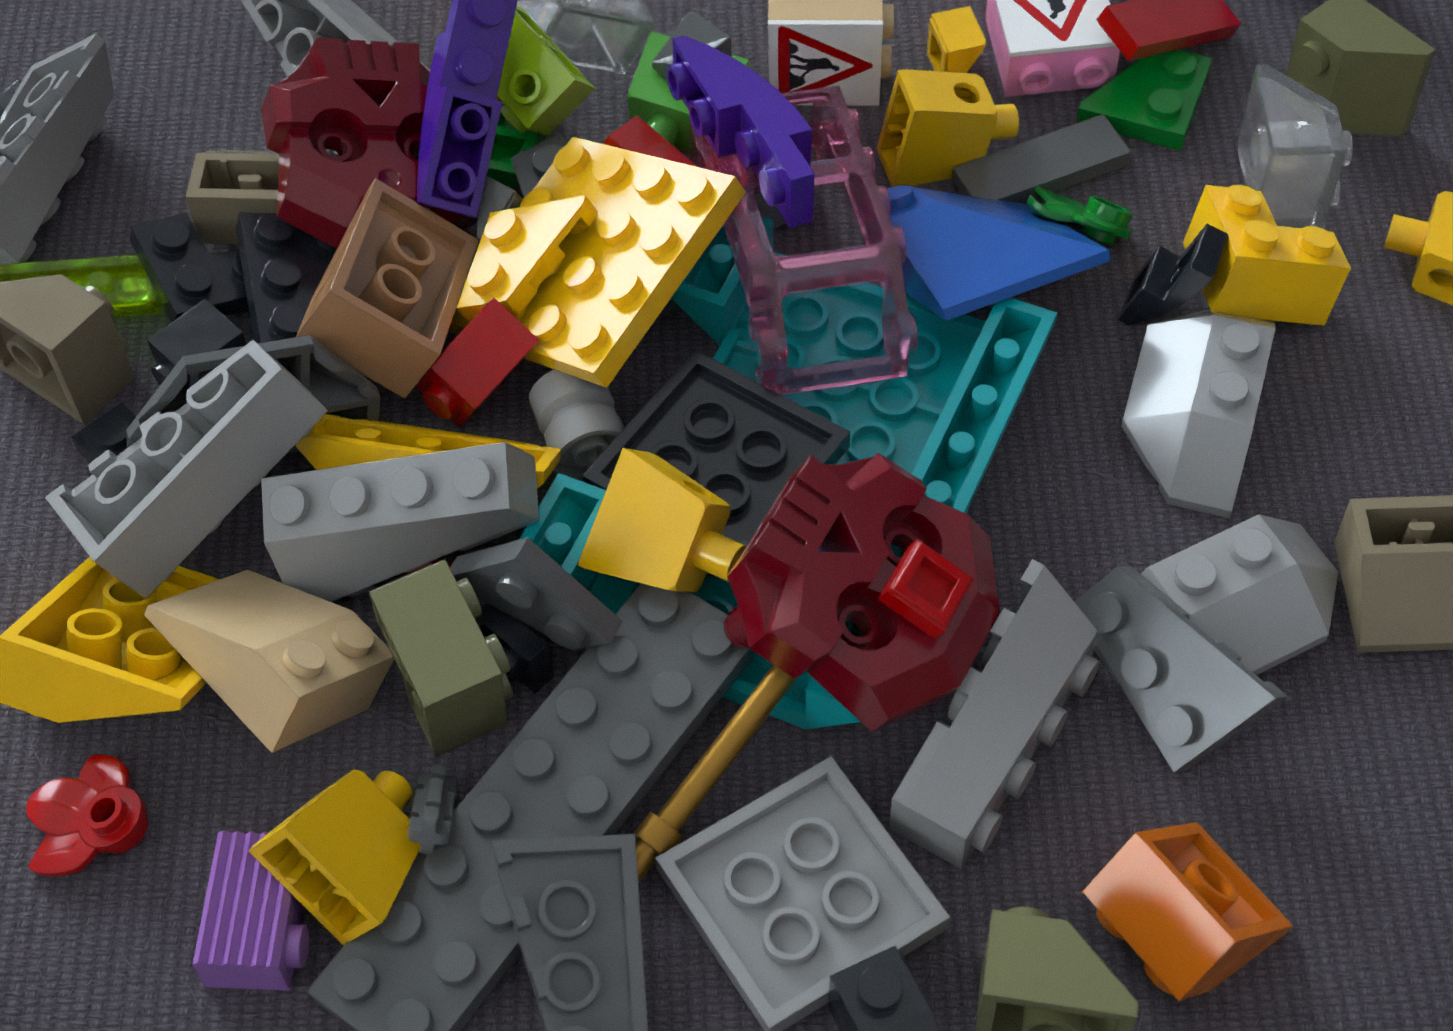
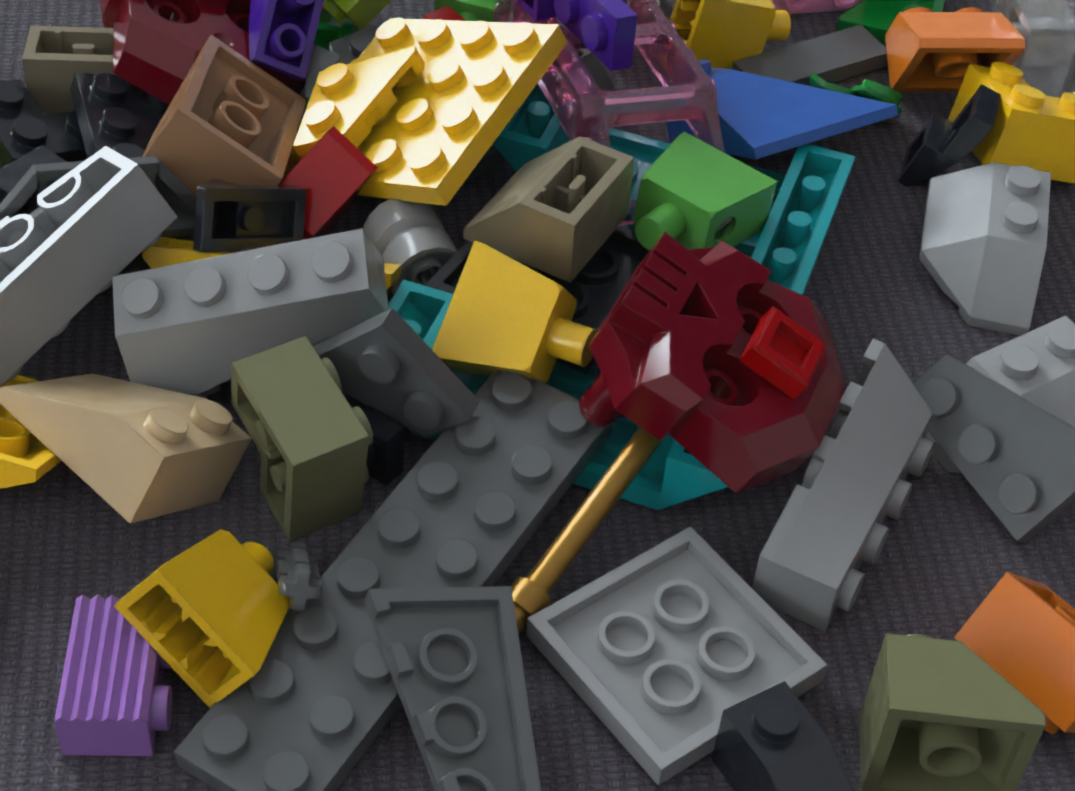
camera: 10 degrees left, 10 degrees down
(403, 400) = (247, 216): none -> black slope
(721, 392) = (558, 208): none -> dark tan slope
(875, 378) = (701, 197): none -> bright green torso
(1184, 153) = (935, 48): none -> orange slope

